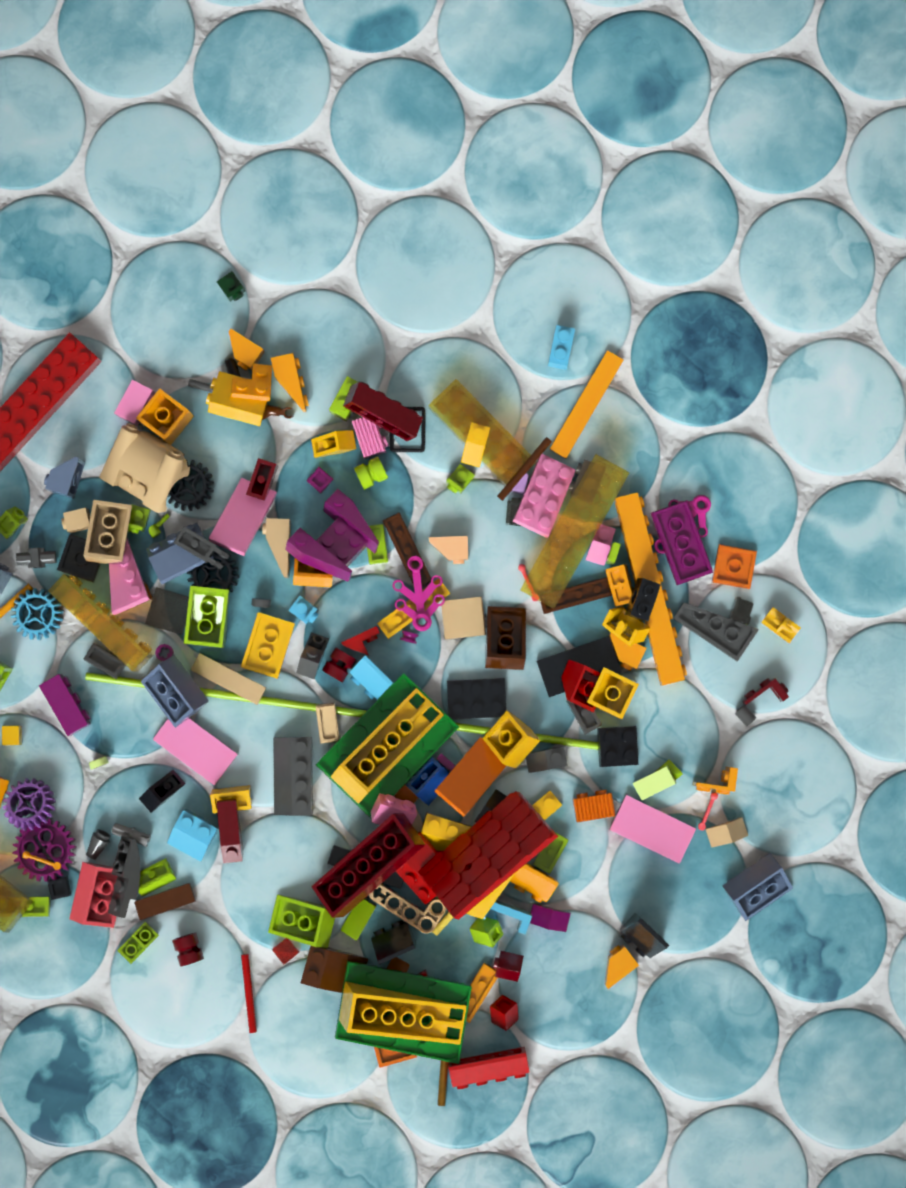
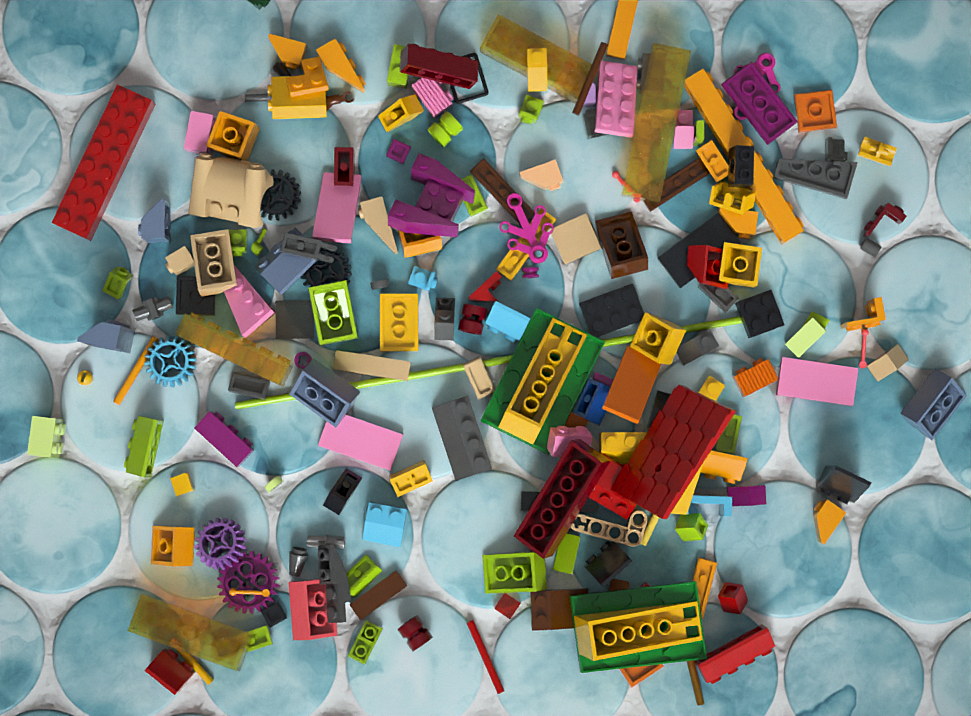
camera: 20 degrees left, 0 degrees up
(230, 831) = (419, 508): dark red slope -> none
(508, 966) = (723, 552): dark red brick -> none

